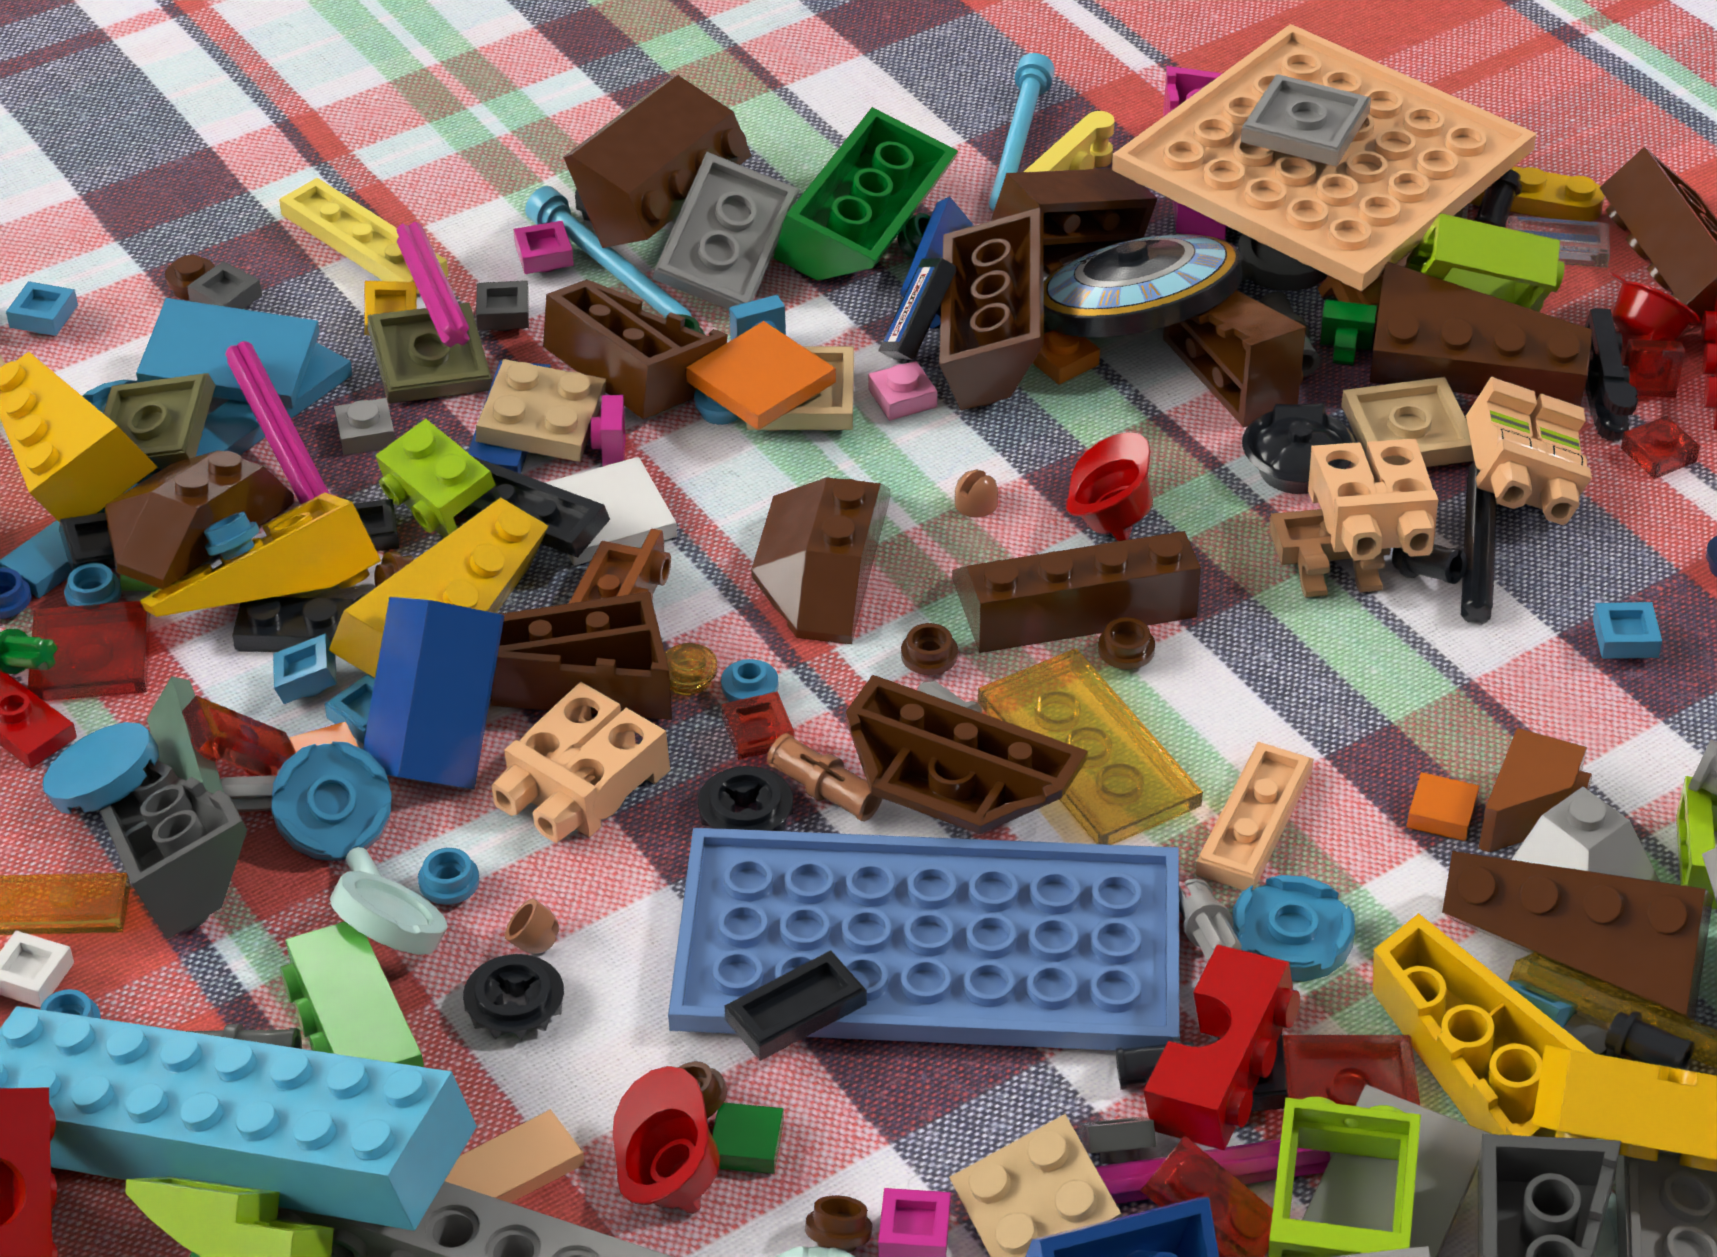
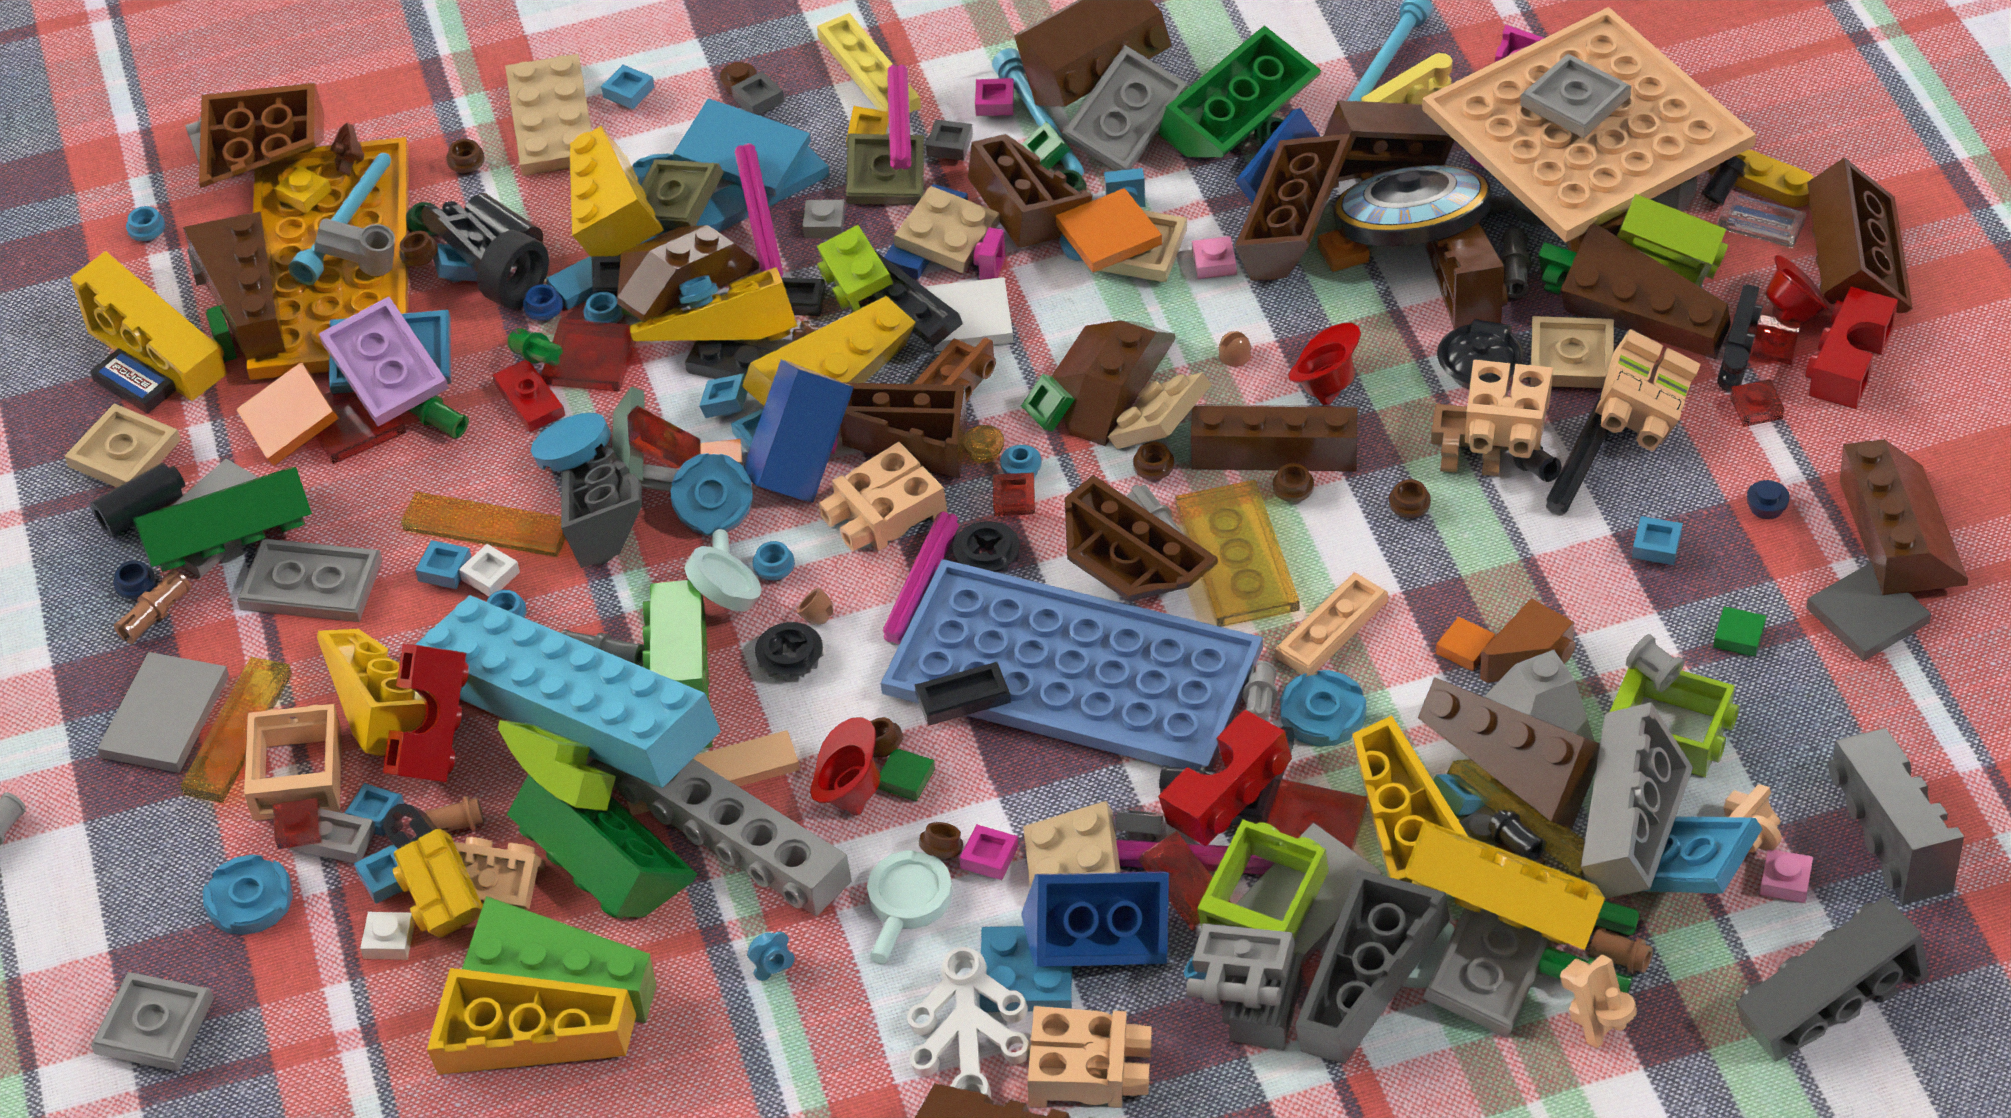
camera: 20 degrees right, 5 degrees up
(640, 285) = (1047, 145): none -> green tile
(667, 862) = (920, 576): none -> dark pink axle
(758, 600) = (1047, 402): none -> green tile
(823, 776) = (1043, 538): nougat pin -> none
(918, 308) = (1240, 197): black tile -> none
(918, 581) = (1159, 410): none -> tan plate
(1287, 636) = (1409, 499): none -> reddish brown plate

